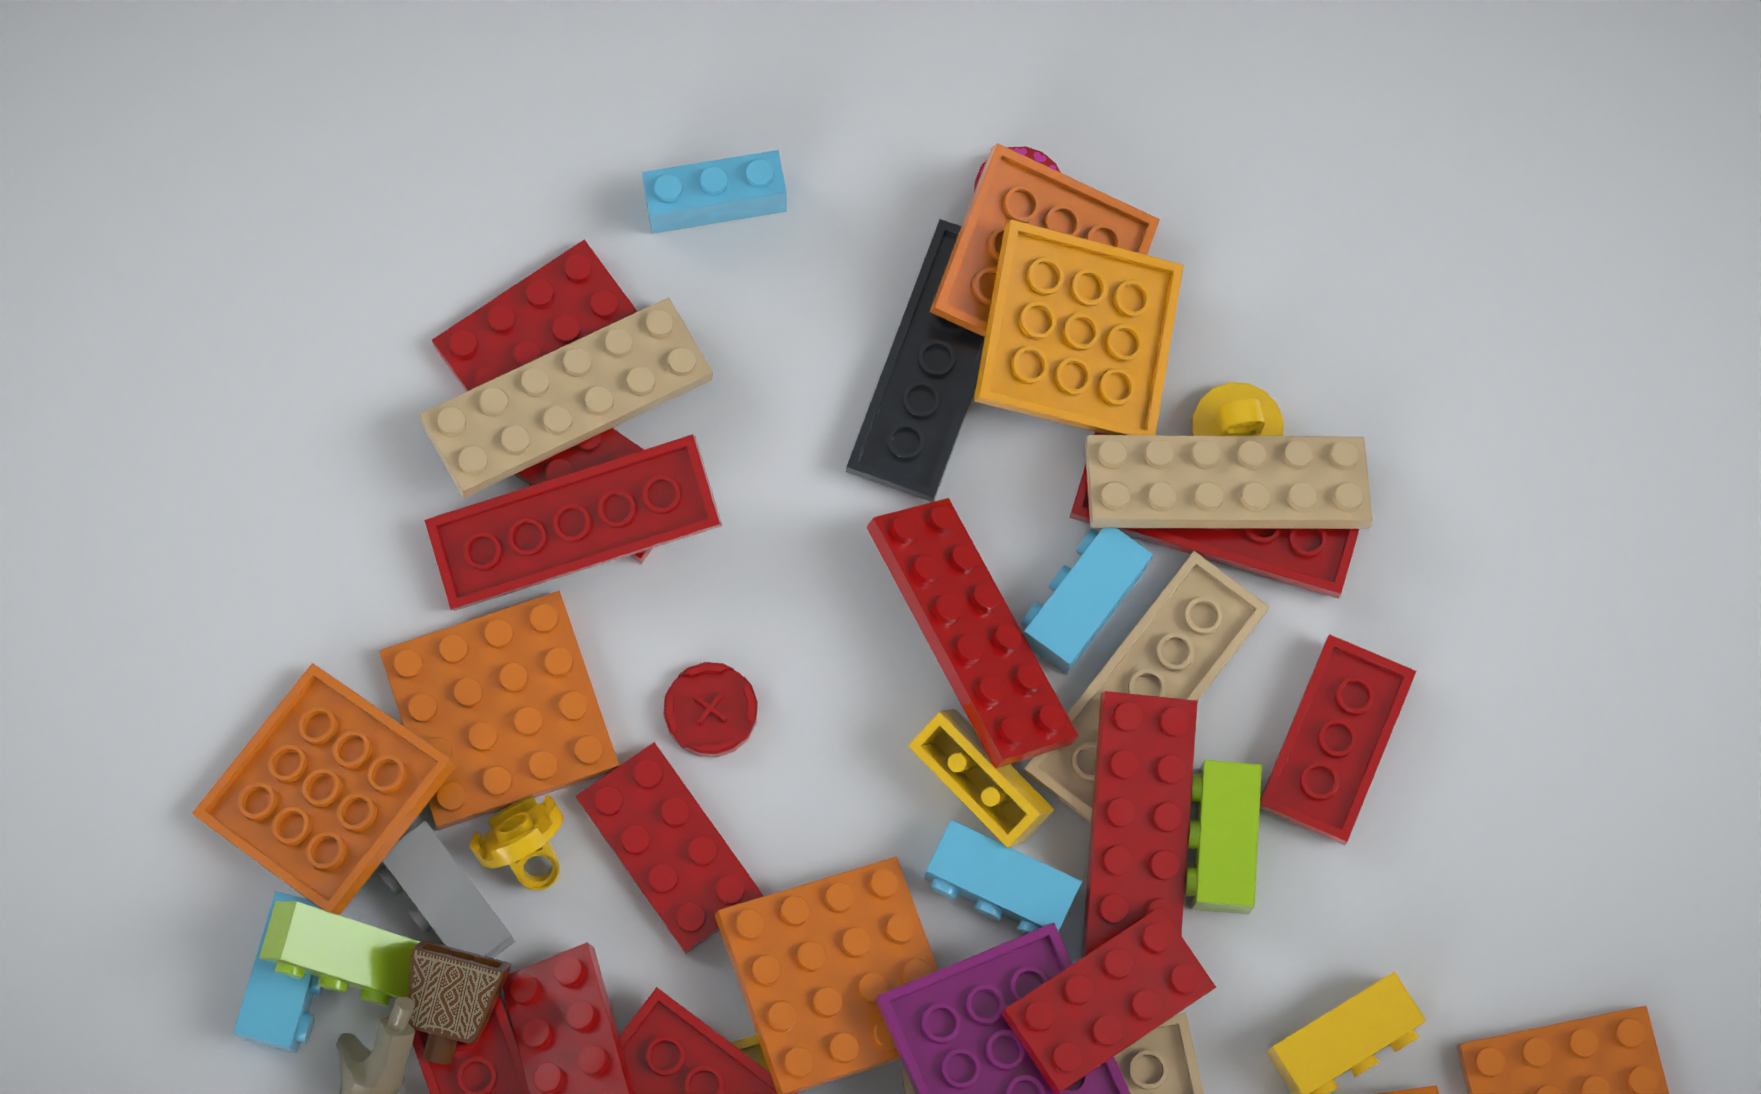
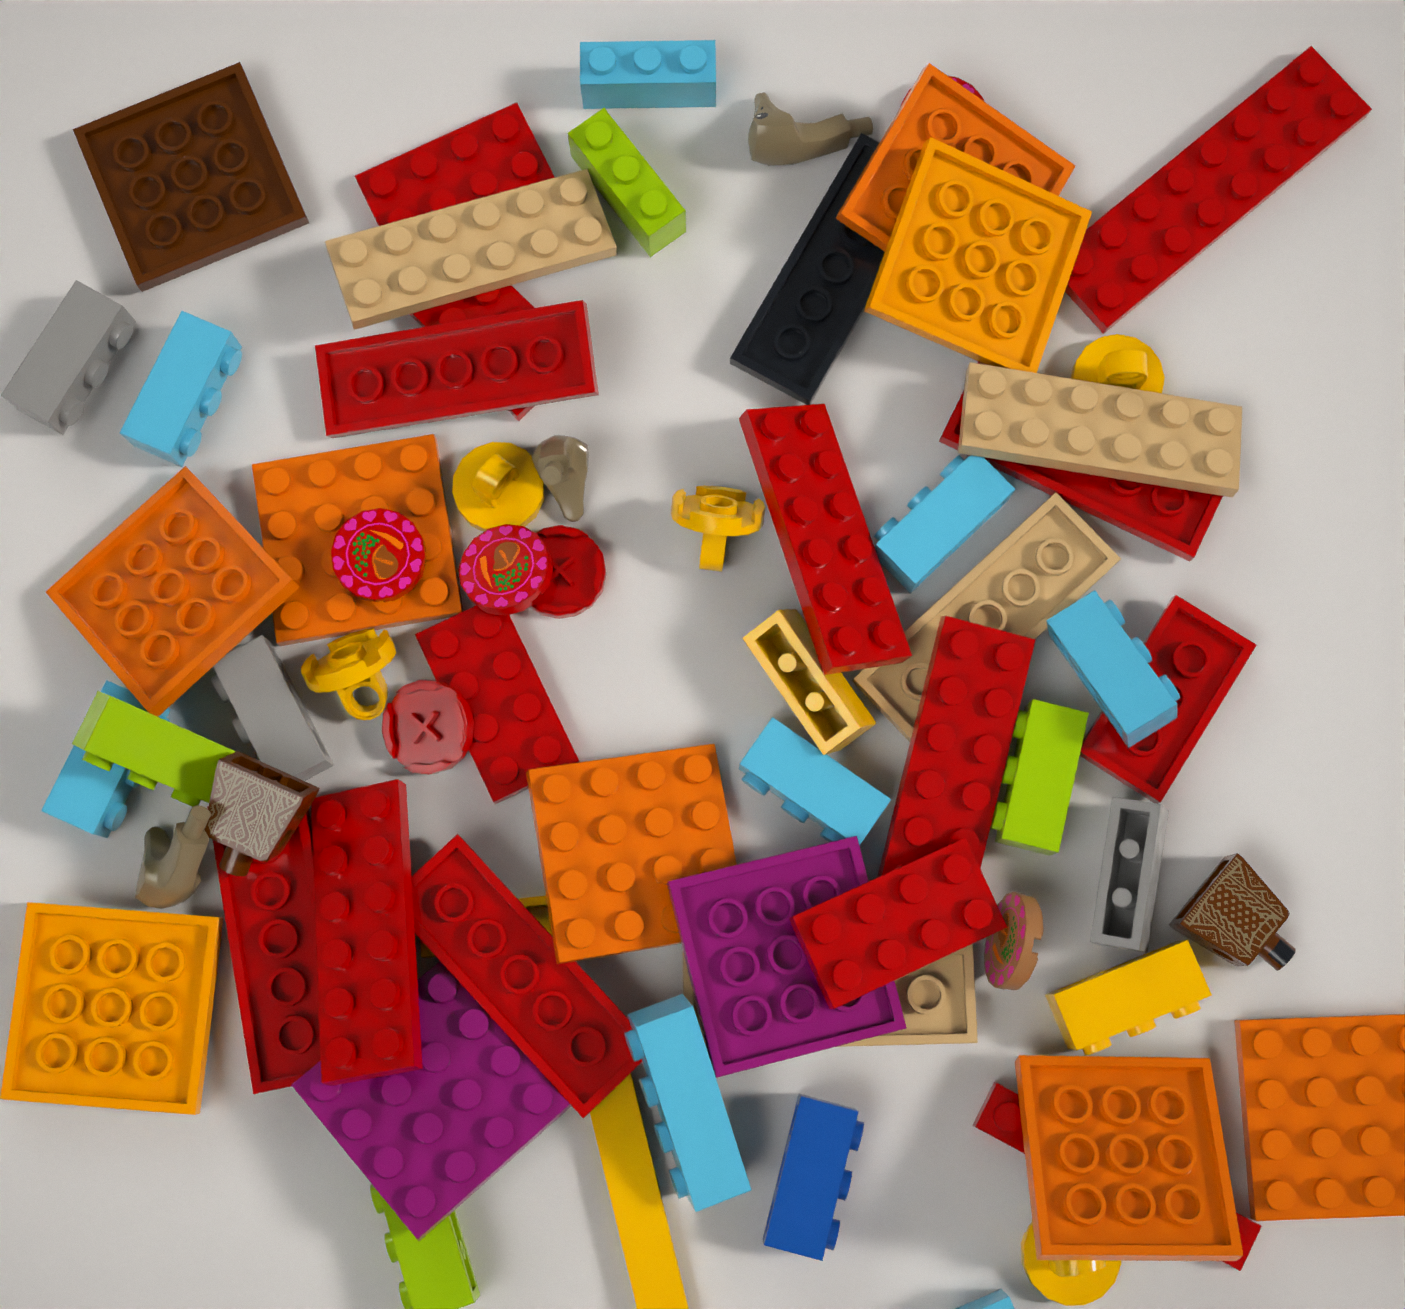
camera: 15 degrees right, 5 degrees up
(174, 572) = (70, 358): none -> light grey brick
(263, 366) = (190, 177): none -> reddish brown plate
(296, 586) = (182, 389): none -> medium azure brick
(528, 721) = (378, 555): none -> red tile
(606, 886) = (428, 727): none -> red tile
(633, 634) = (497, 486): none -> yellow tile
(657, 715) = (505, 569): none -> red tile
(698, 606) = (564, 469): none -> dark tan animal
(712, 305) = (627, 182): none -> lime brick
(858, 238) = (780, 140): none -> dark tan animal
(861, 627) = (716, 514): none -> yellow tile
(1222, 1011) = (1009, 951): none -> medium nougat tile
(1279, 716) = (1114, 667): none -> medium azure brick
(1299, 219) = (1211, 187): none -> red plate
(1328, 917) = (1129, 874): none -> light grey brick
(1439, 942) = (1236, 916): none -> reddish brown torso

